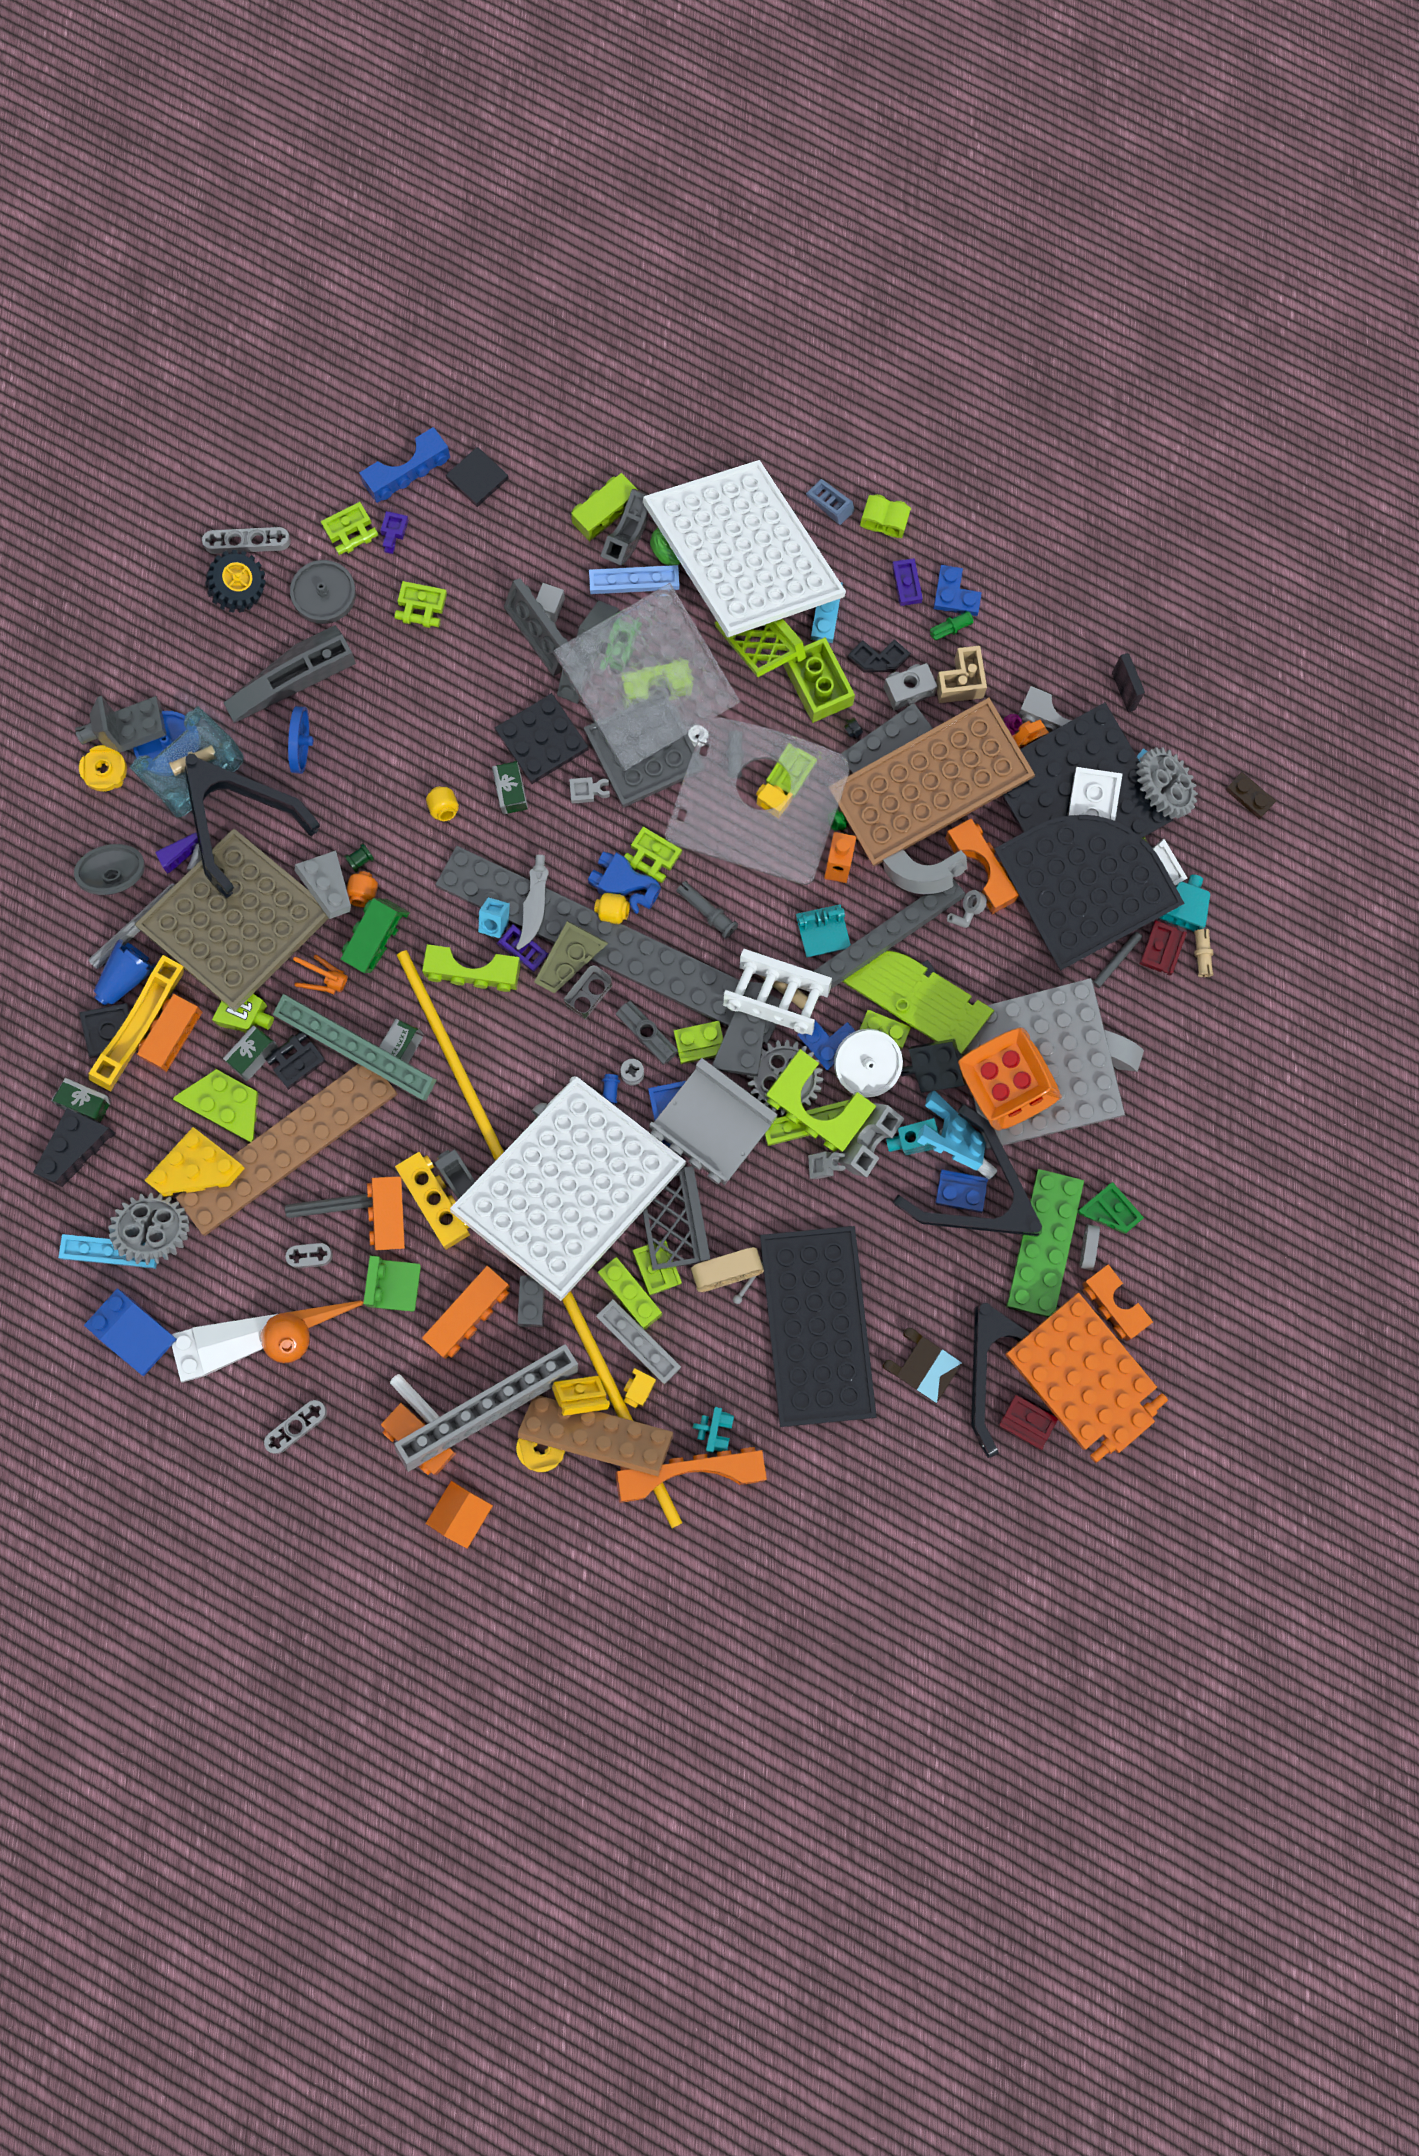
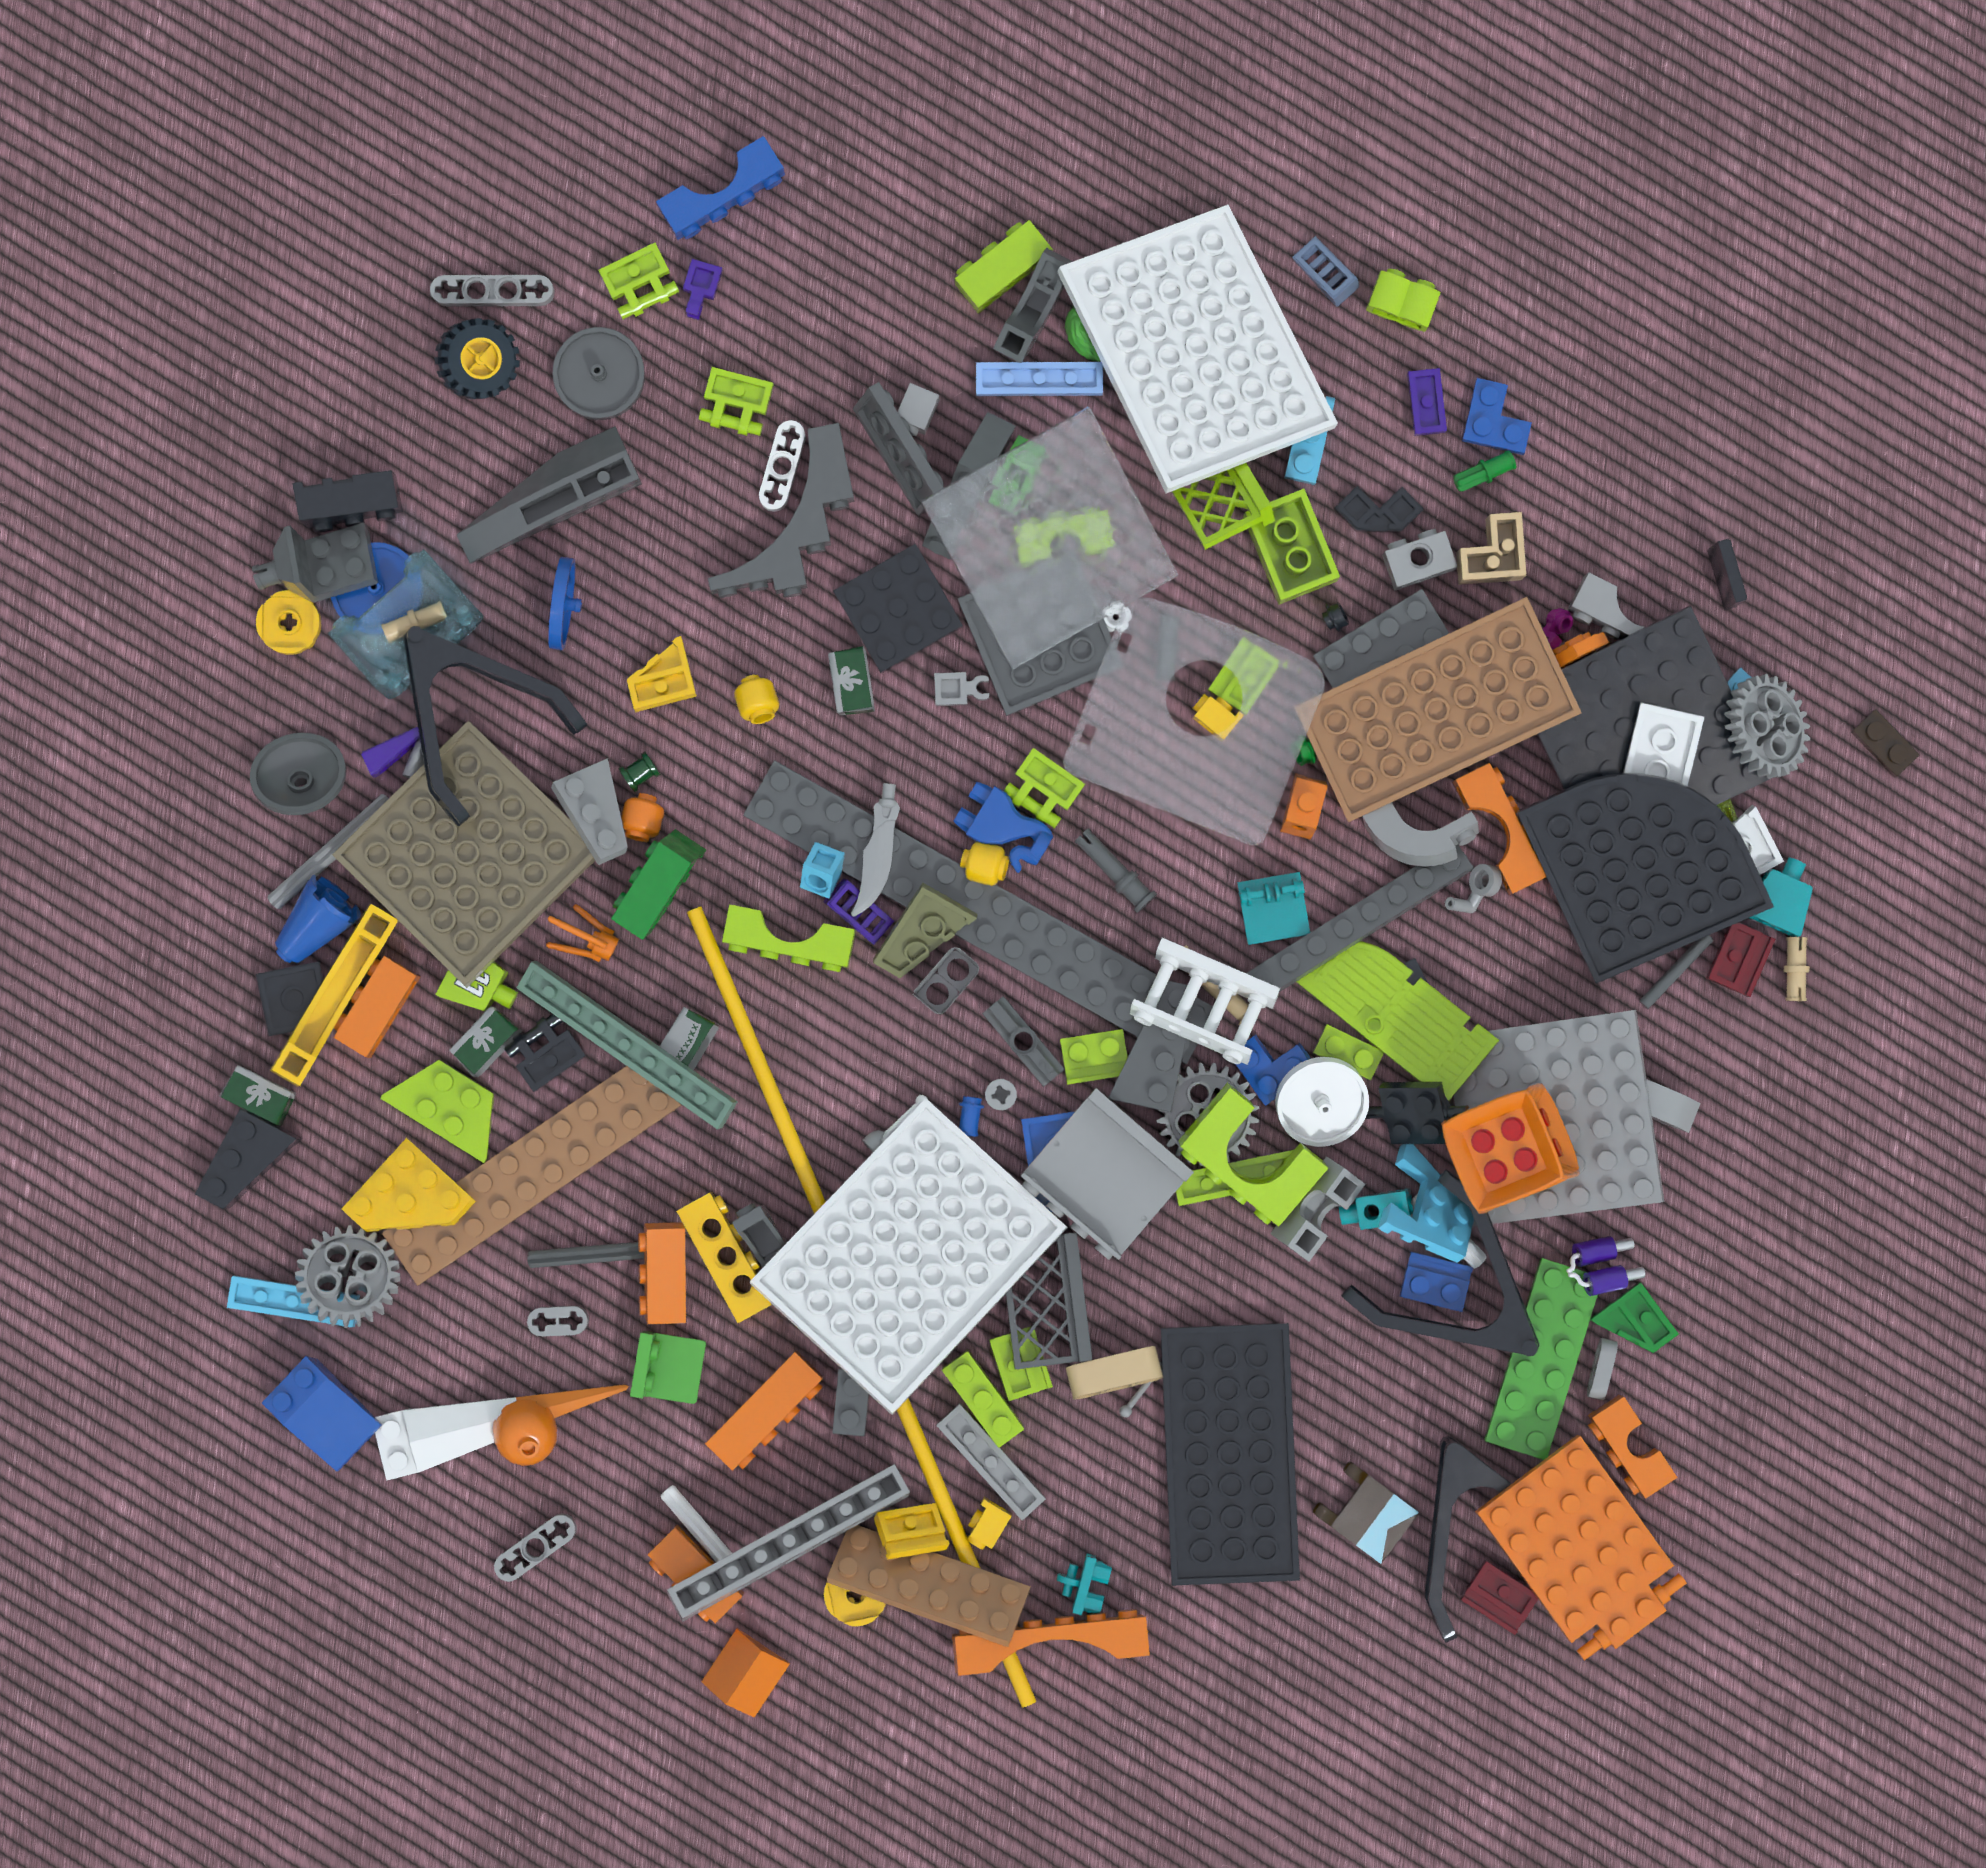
camera: 10 degrees right, 10 degrees up
(141, 682) = (348, 500): none -> black wedge
(374, 794) = (663, 679): none -> yellow wing
(453, 637) = (796, 445): none -> white beam
(473, 688) = (782, 562): none -> dark grey arch
(477, 476) = (822, 208): black tile -> none
(823, 1164) = (1253, 1238): light grey plate -> none
(1087, 1179) = (1605, 1279): none -> dark purple piece

